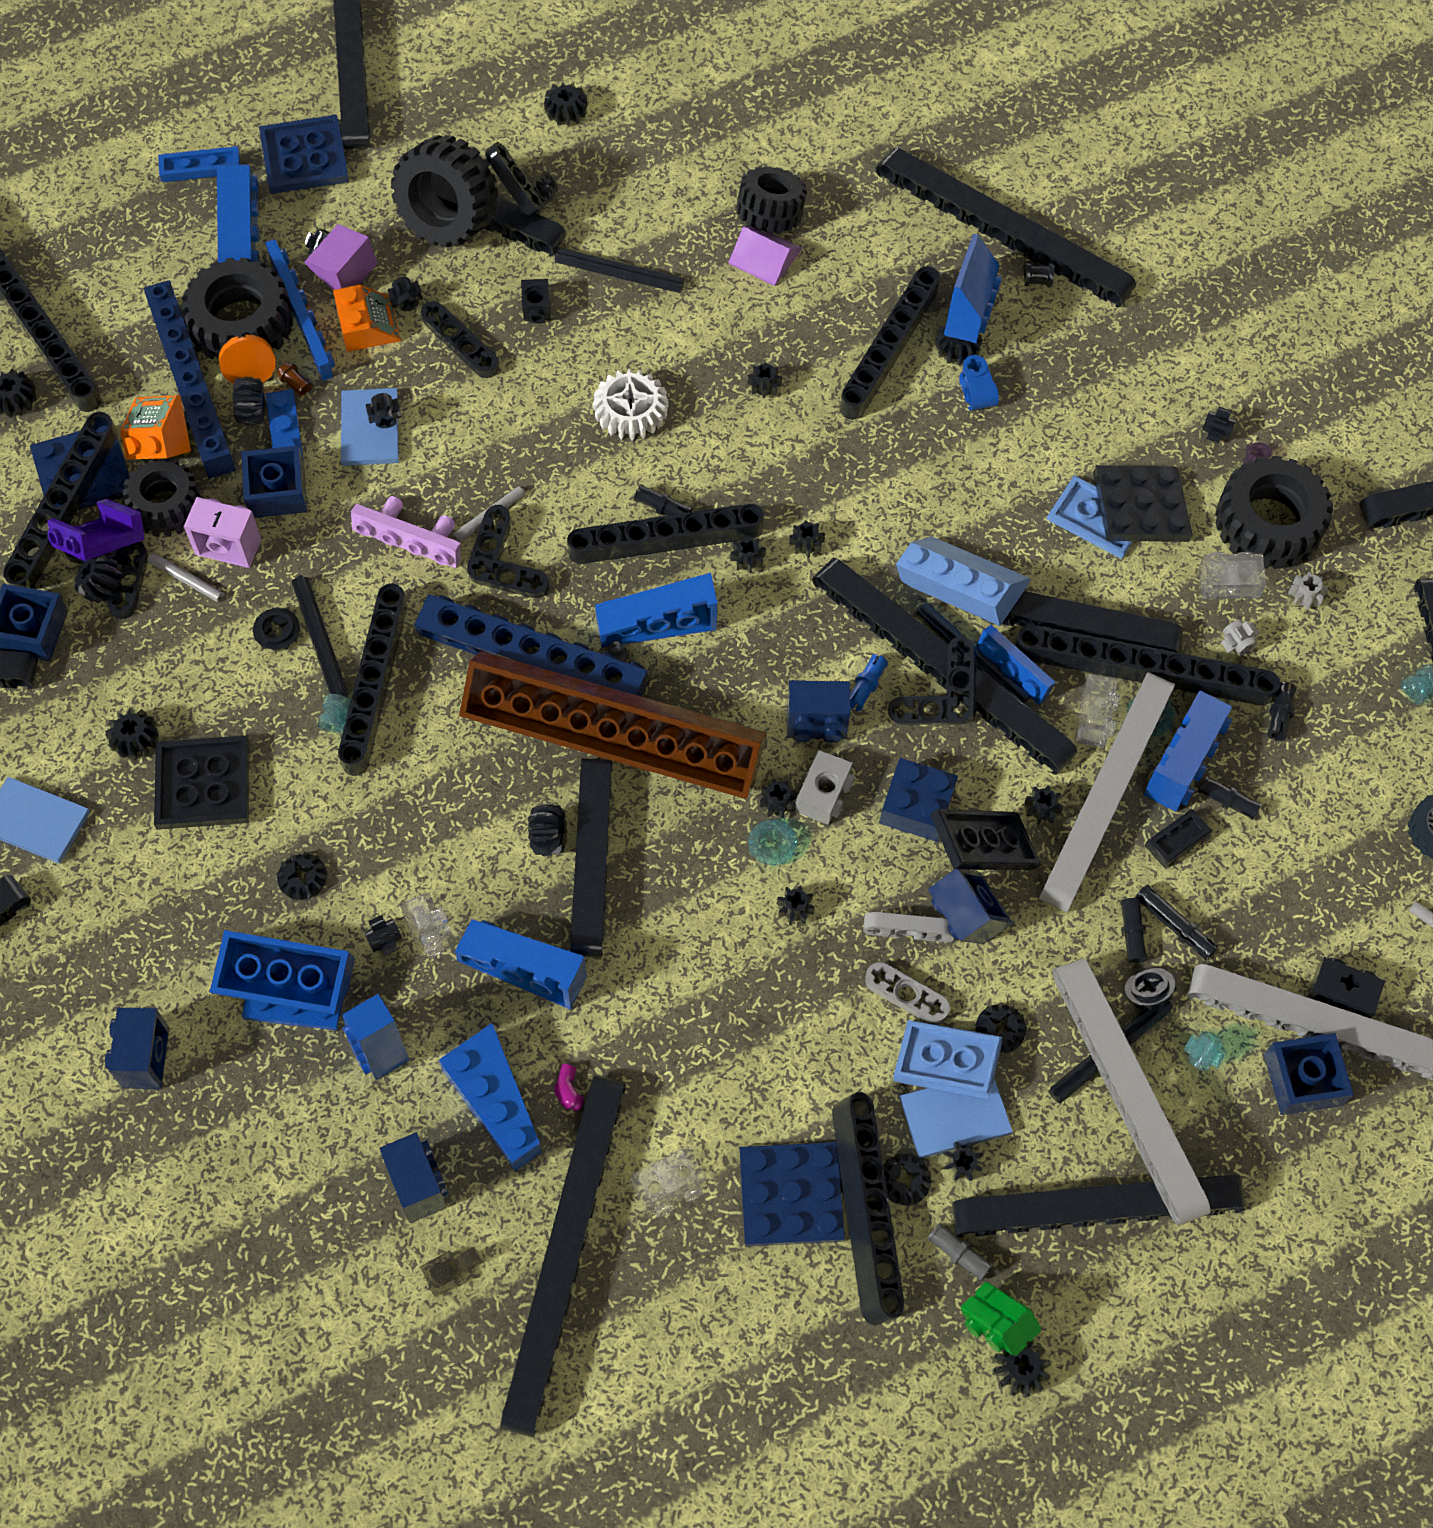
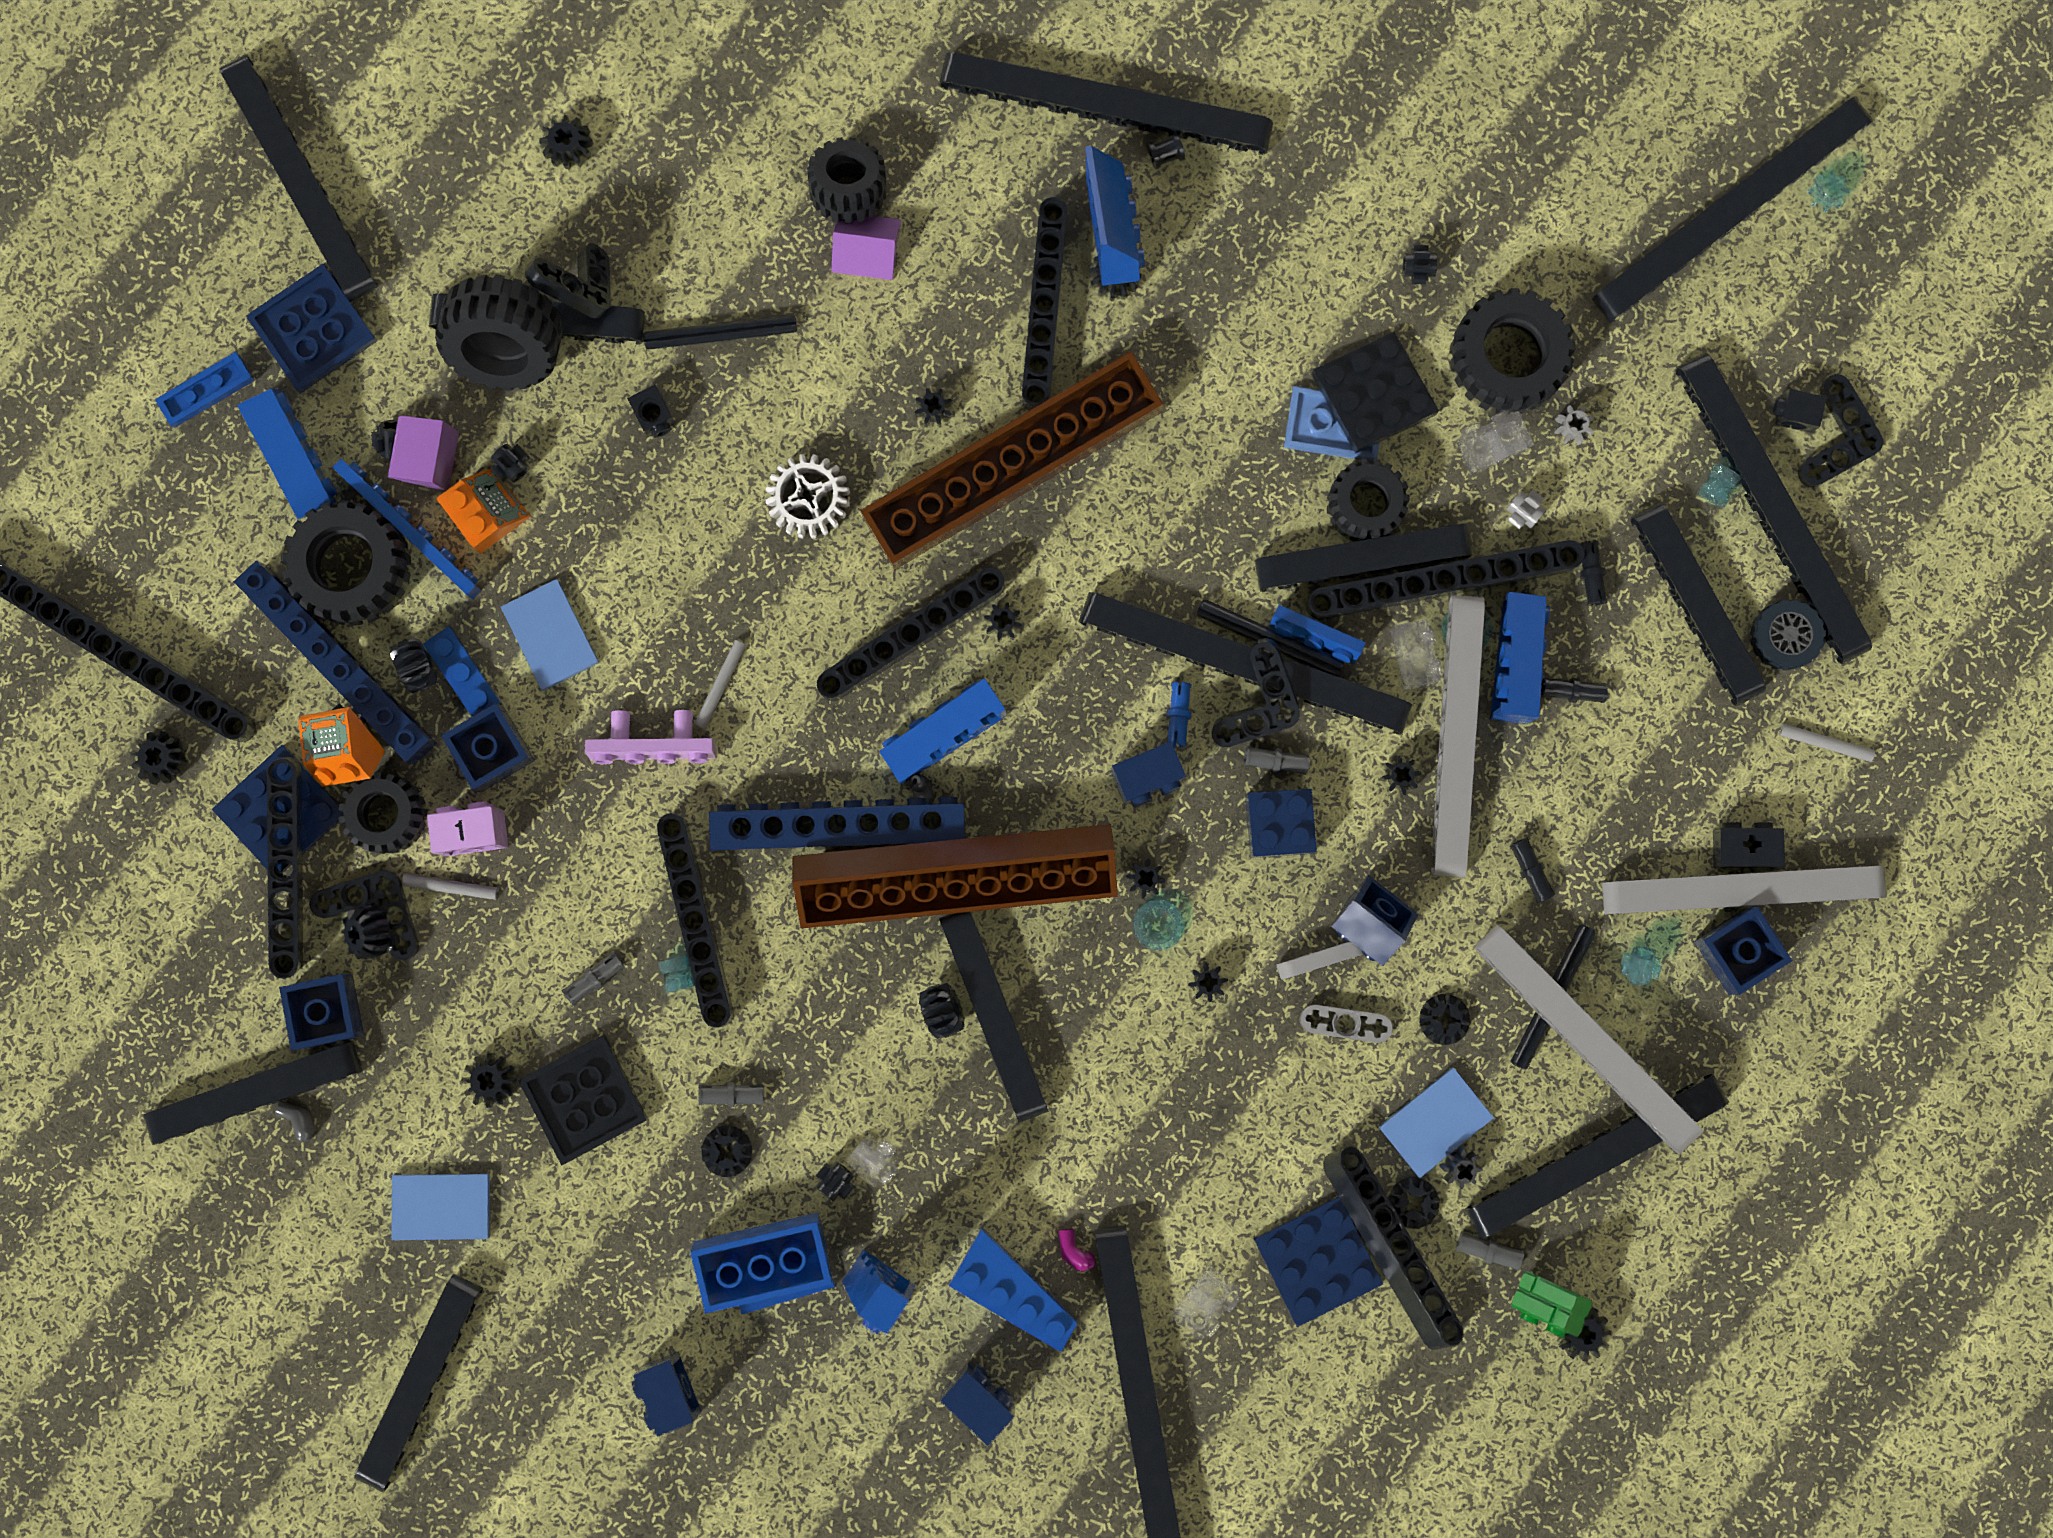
camera: 20 degrees left, 20 degrees up
(113, 530) = (343, 887): dark purple panel -> none
(247, 358) = (388, 620): orange tile -> none
(263, 691) = (593, 978): none -> dark grey pin
(281, 618) = (556, 908): black gear -> none
(289, 374) = (444, 613): reddish brown pin -> none
(319, 636) = (619, 896): black axle -> none
(329, 829) = (730, 1094): none -> dark grey pin
(383, 410) = (560, 619): black gear -> none
(445, 1272) = (1042, 1465): clear smoke plate -> none
(459, 340) = (594, 487): black beam -> none
(491, 559) = (748, 736): black beam -> none
(523, 962) = (977, 1152): blue wedge -> none
(660, 502) = (892, 598): black pin -> none
(807, 538) = (1059, 587): black gear -> none
(811, 437) = (1012, 460): none -> reddish brown brick
(825, 771) = (1180, 829): light grey brick -> none
(936, 751) = (1276, 760): none -> dark grey pin
(948, 1059) = (1410, 1075): medium blue tile -> none
(961, 578) = (1230, 561): medium blue slope -> none
(978, 384) = (1158, 322): blue piece -> none
(985, 840) = (1364, 848): black tile -> none
(1106, 558) = (1379, 477): none -> black tyre
(1156, 979) = (1569, 910): black gear -> none
(1178, 838) = (1540, 754): black plate -> none
(1181, 926) = (1580, 848): black pin -> none
(1257, 449) = (1475, 275): clear purple plate -> none
(1371, 771) = (1696, 597): none -> black beam

